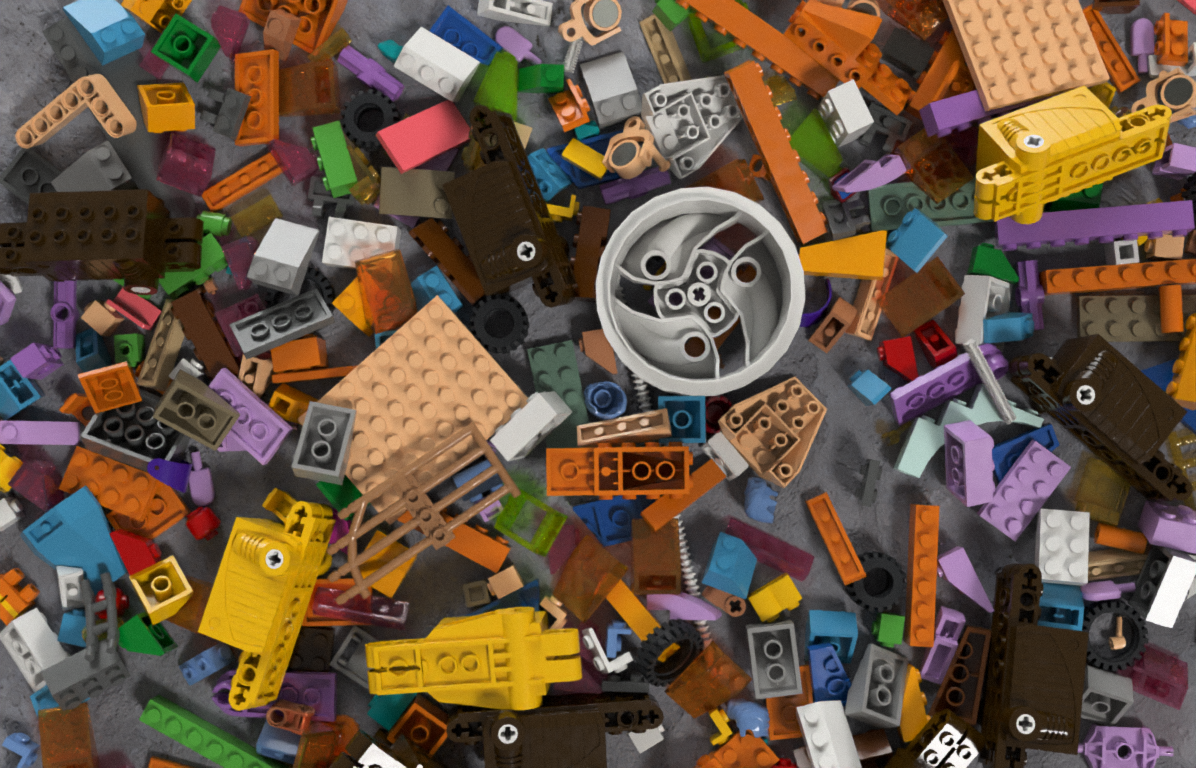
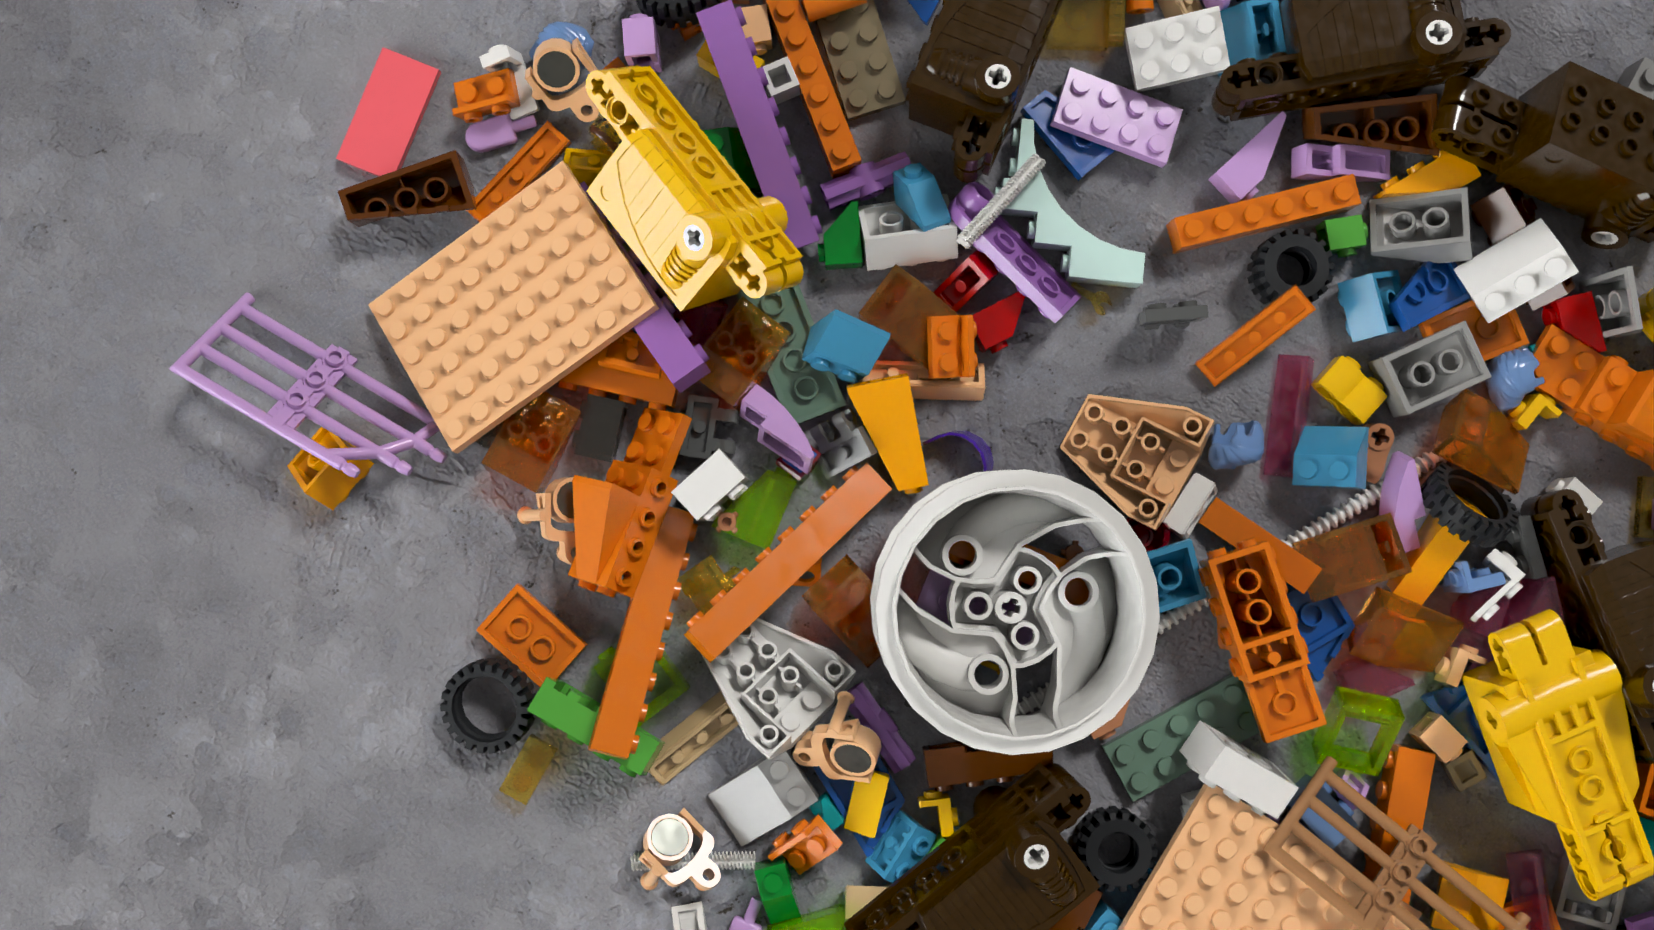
camera: 110 degrees left, 0 degrees up
(605, 400) = (1169, 681): medium blue hair -> none
(630, 428) = (1204, 647): light nougat slope -> none
(815, 119) = (727, 522): none -> nougat piece
(833, 325) = (980, 417): nougat slope -> none
(868, 387) = (1049, 350): dark azure slope -> none
(893, 316) = (951, 346): none -> orange bracket
(969, 463) = (1111, 196): lavender brick -> none

